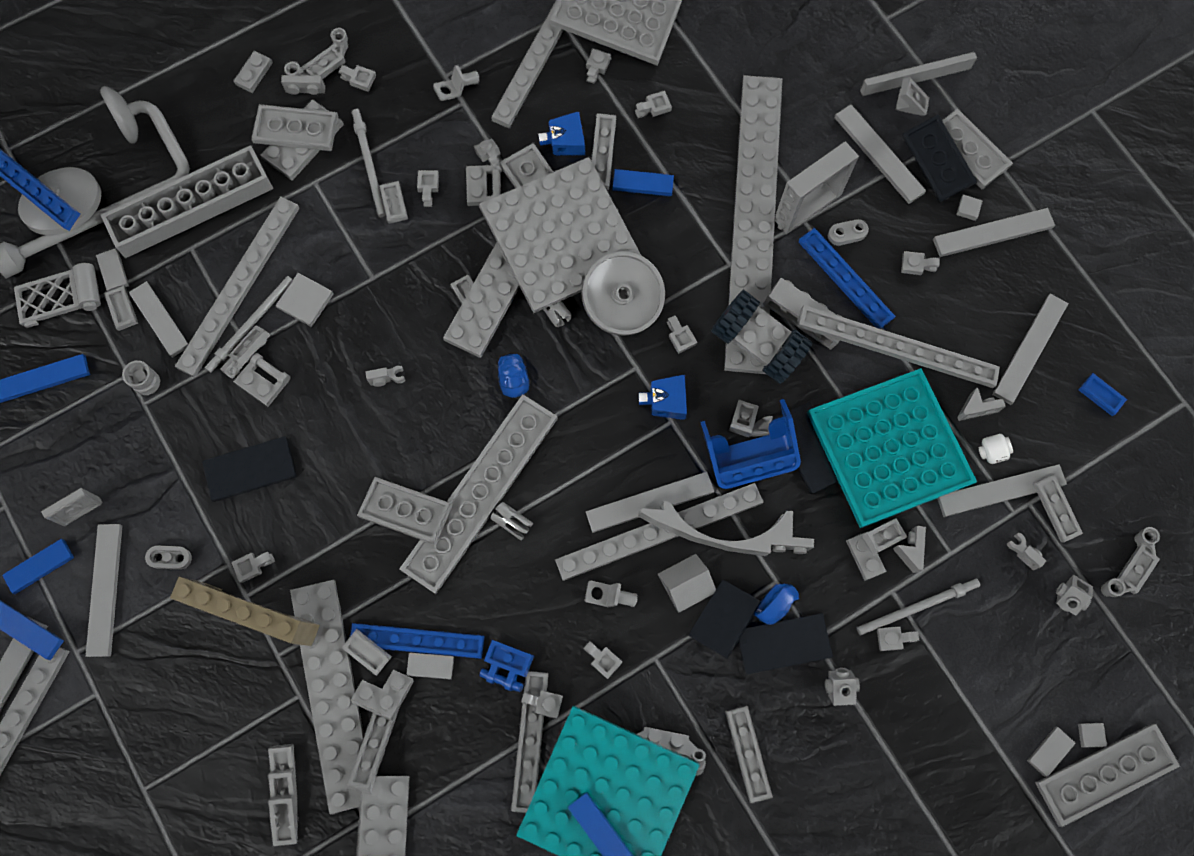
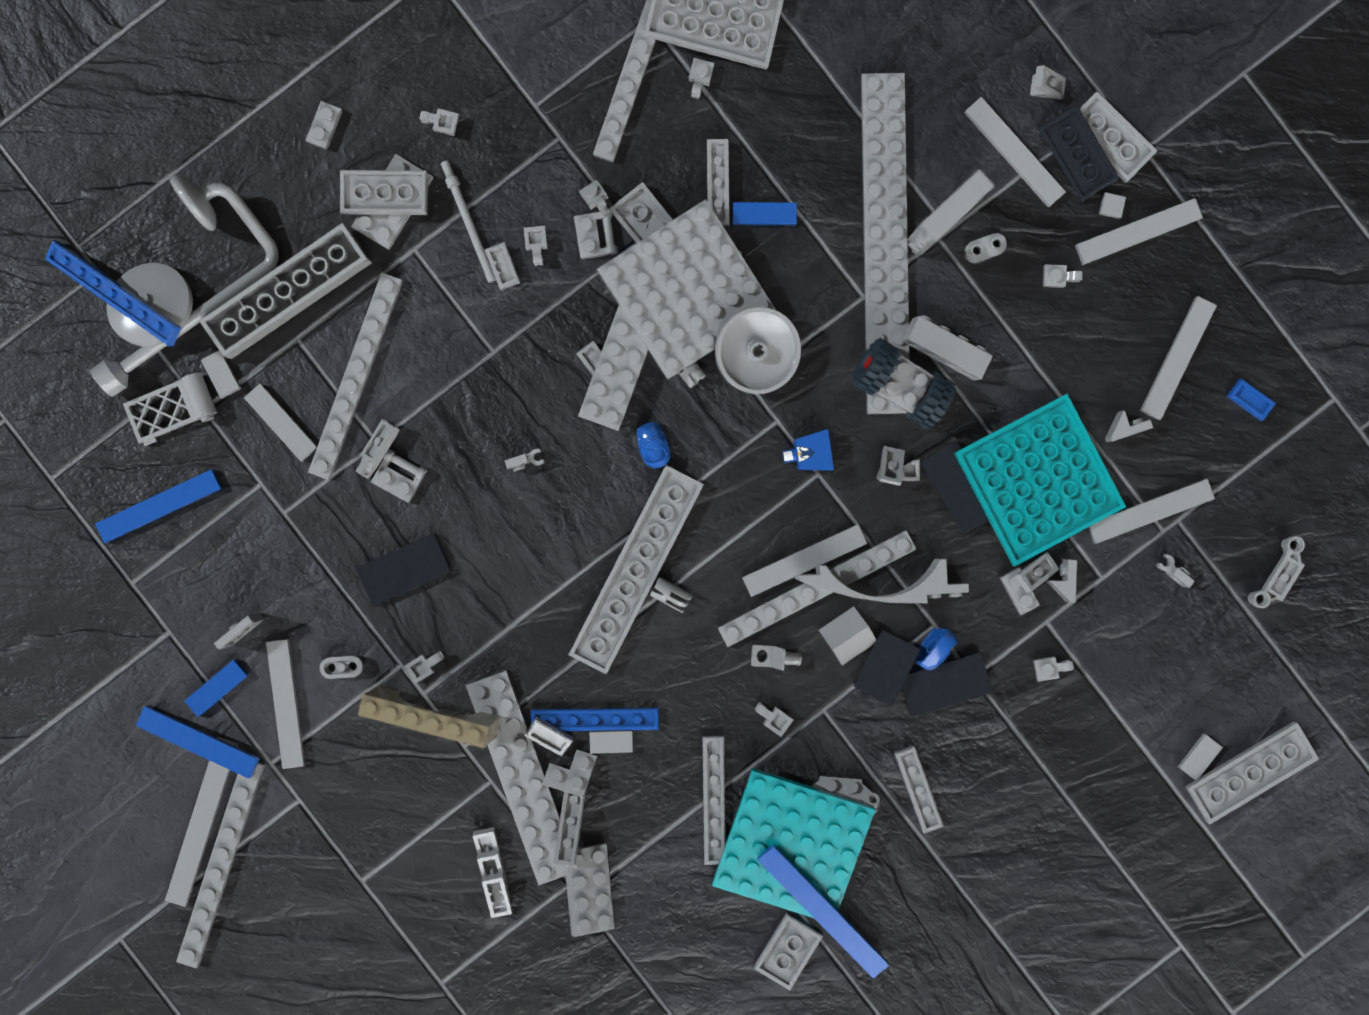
camera: 10 degrees left, 15 degrees up
(121, 308) = (238, 414): light grey tile -> none
(141, 377) = (277, 490): light grey wheel -> none
(222, 353) = (353, 453): light grey bar -> none
(303, 84) = (392, 137): light grey plate -> none
(304, 299) = (427, 385): light grey tile -> none
(326, 61) = (399, 109): light grey plate -> none
(405, 510) = (565, 596): light grey tile -> none
(456, 83) = (549, 117): light grey bracket -> none
(509, 659) = (684, 728): blue plate -> none
(546, 704) = (726, 766): light grey plate -> none
(565, 135) = (675, 168): blue torso -> none
(655, 103) = (770, 119): light grey plate -> none
(681, 336) = (821, 385): light grey plate -> none
(756, 457) = (904, 505): blue windscreen -> none
(842, 687) = (1003, 721): light grey brick -> none
(846, 279) = (986, 301): blue tile -> none
(898, 346) = (1042, 375): light grey plate -> none
(918, 73) = (1053, 51): light grey tile -> none
(957, 590) = (1108, 616): light grey bar -> none
(996, 448) = (1144, 470): white head -> none
(1057, 508) = (1205, 524): light grey tile -> none
(1074, 595) = (1221, 610): light grey brick -> none
(1092, 735) = (1238, 737): light grey tile -> none

